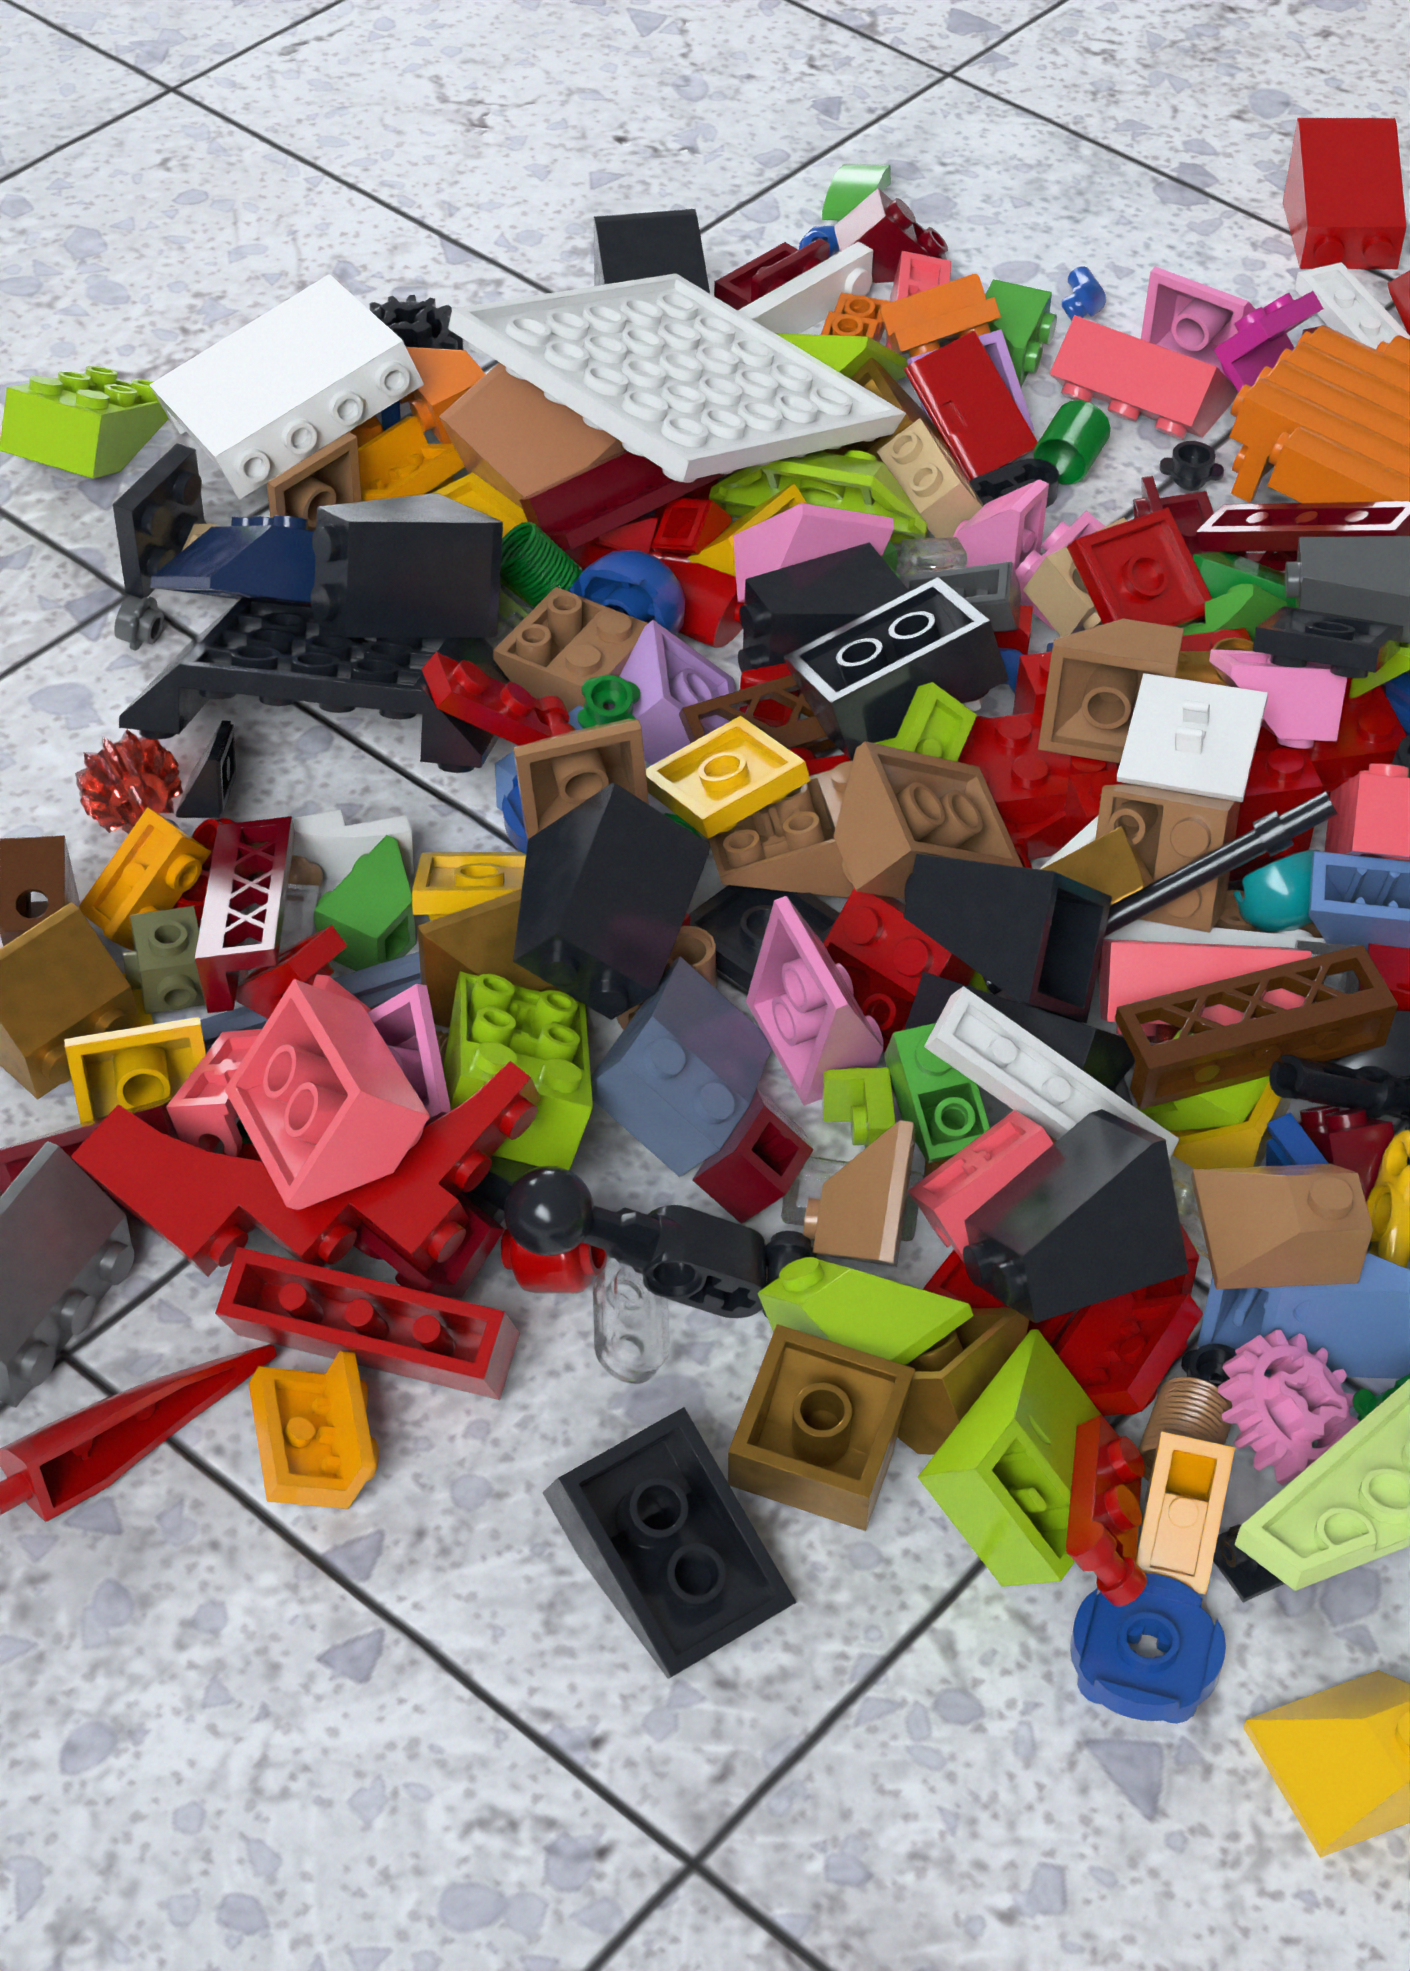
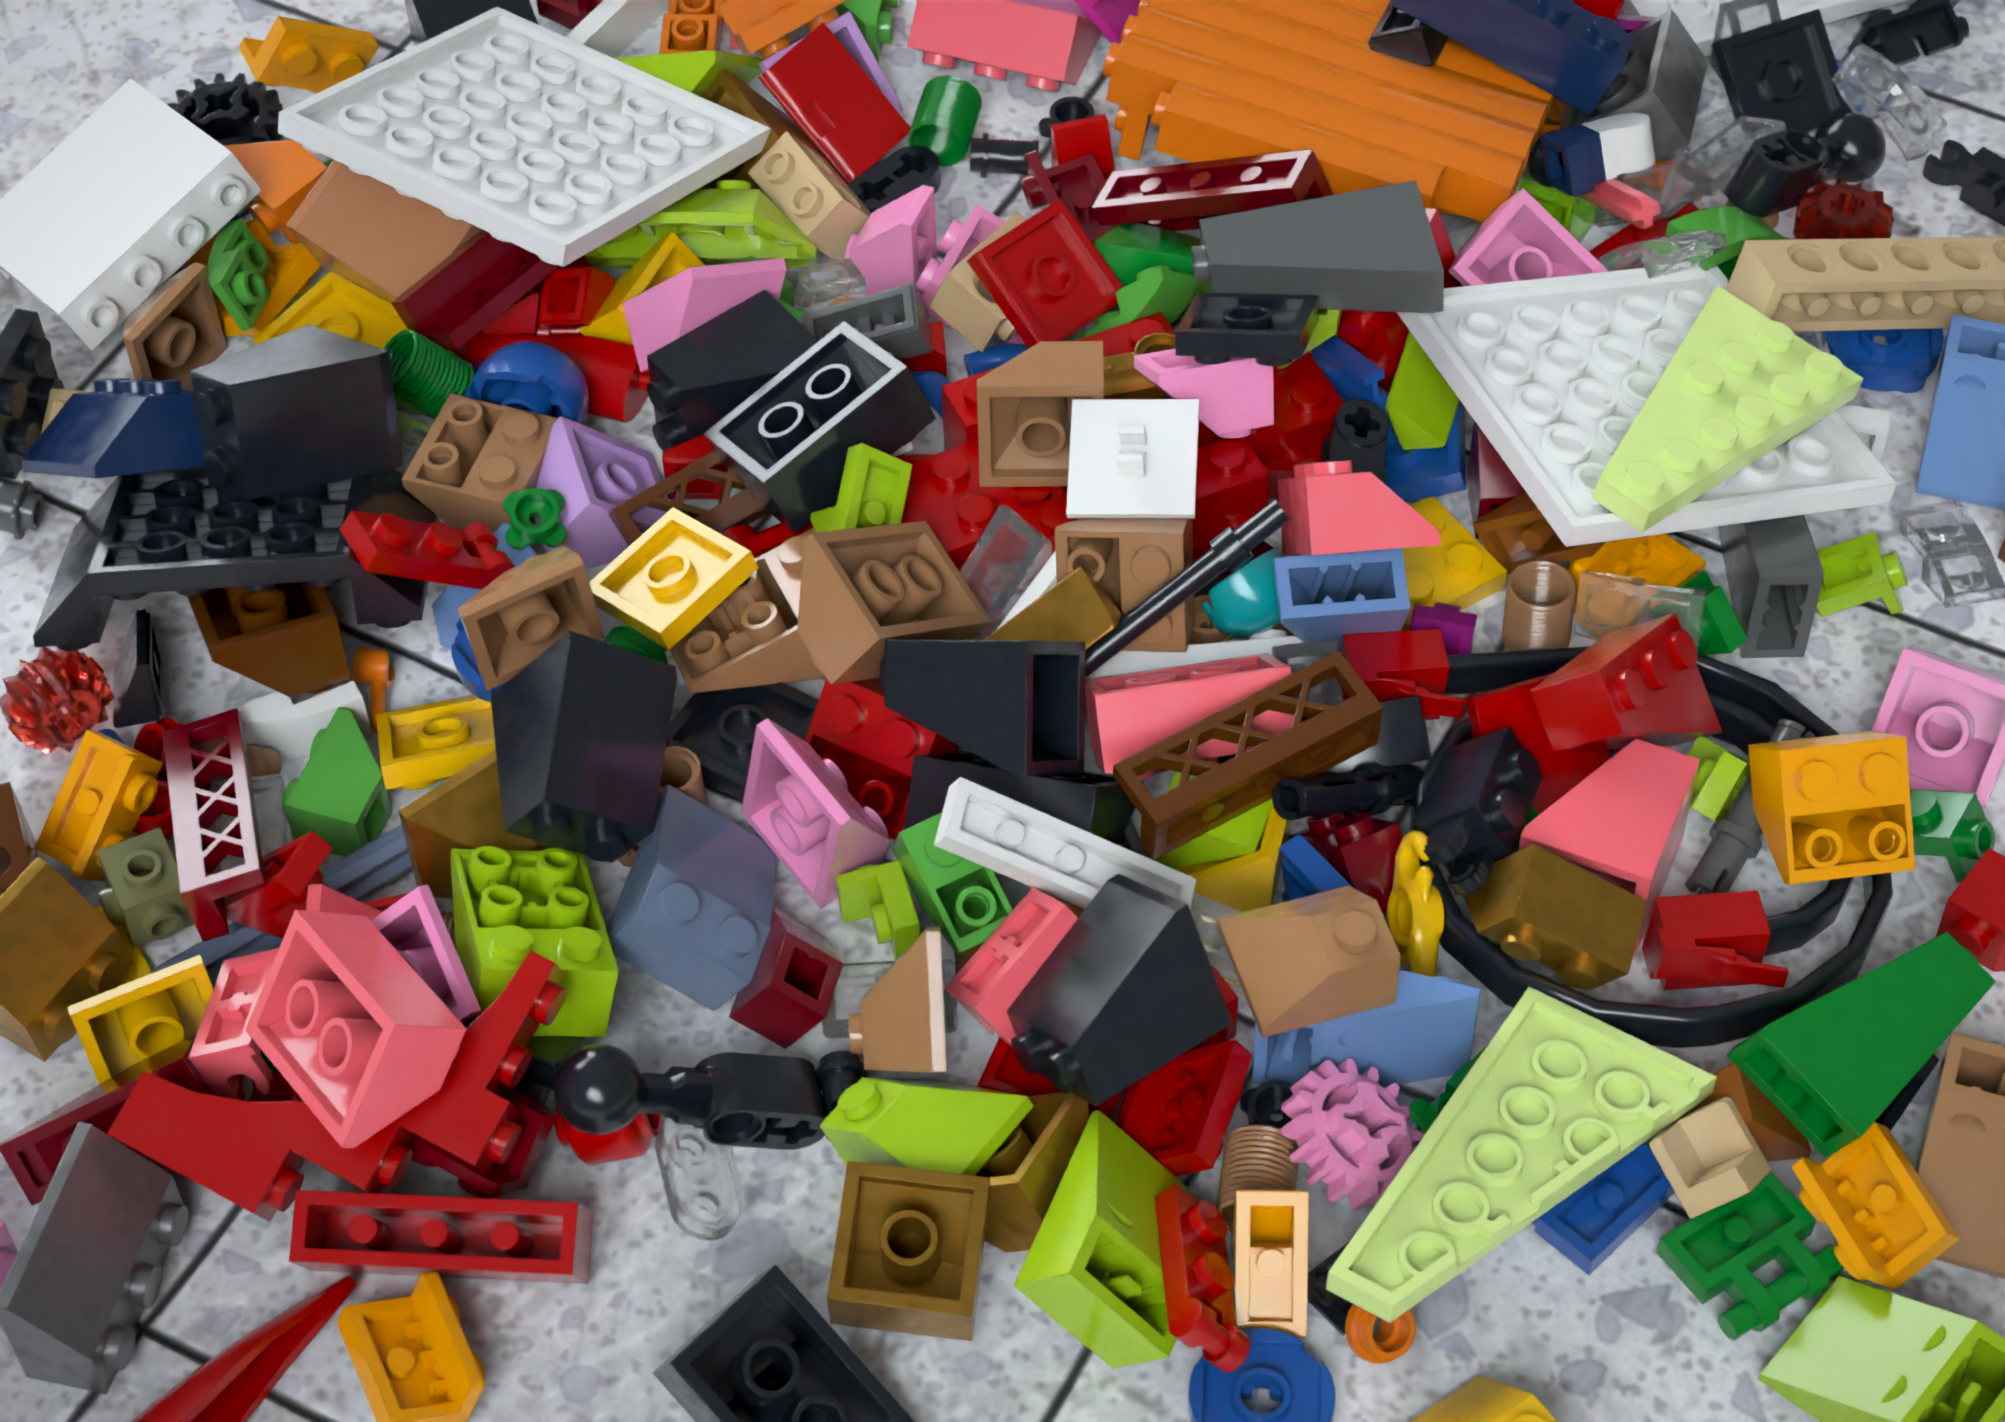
camera: 10 degrees left, 5 degrees up
(342, 757) = (274, 636): none -> reddish brown slope
(387, 453) = (238, 272): none -> bright green slope
(429, 815) = (374, 669): none -> orange hand
(487, 279) = (308, 54): none -> light orange bracket
(1049, 816) = (1004, 564): none -> clear slope
(1116, 481) = (1000, 155): none -> black pin
(1199, 475) = (1080, 138): none -> red slope
(1293, 1617) = (1389, 1342): none -> orange plate

